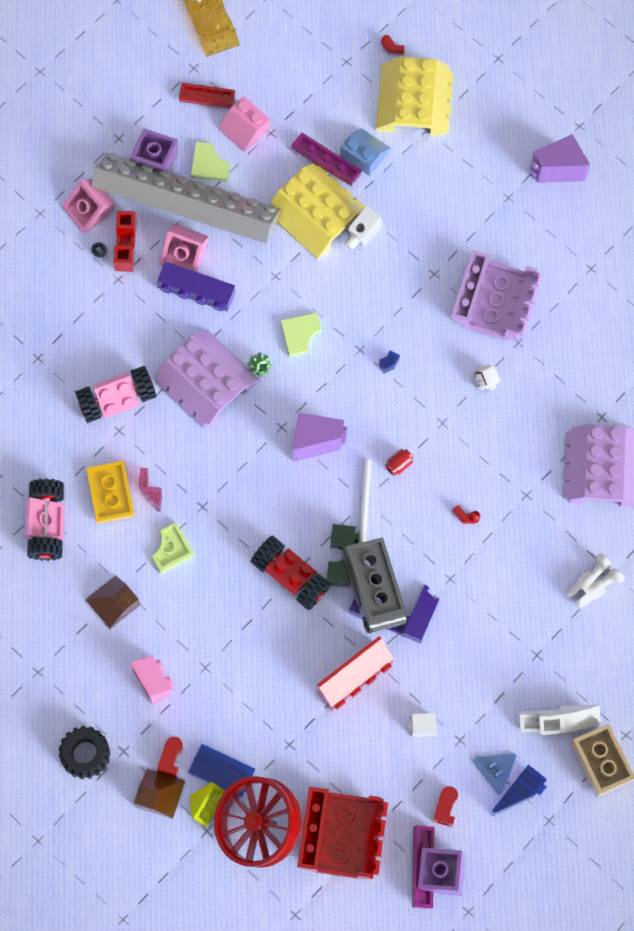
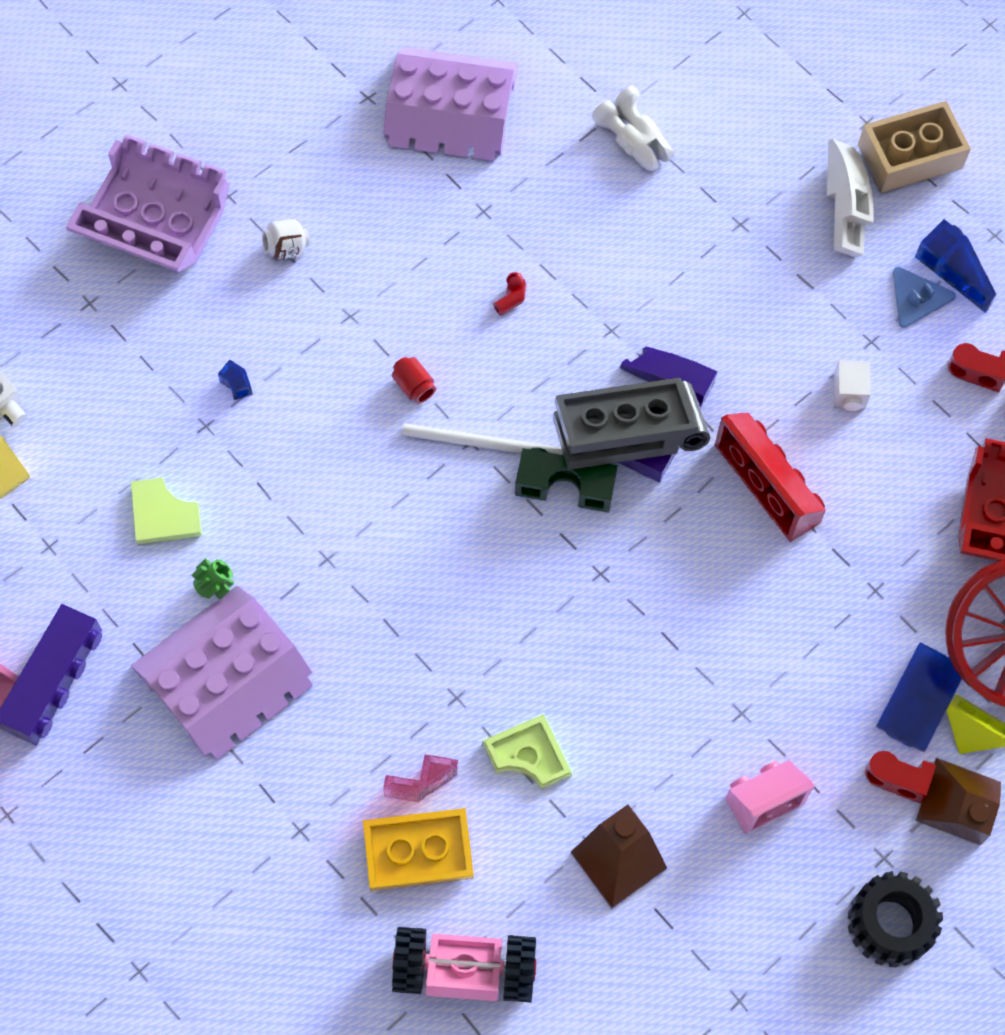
camera: 85 degrees left, 5 degrees down
(116, 394) = (238, 824): plate -> none
(290, 572) = (593, 555): plate -> none
(317, 436) = (355, 495): medium lavender slope -> none

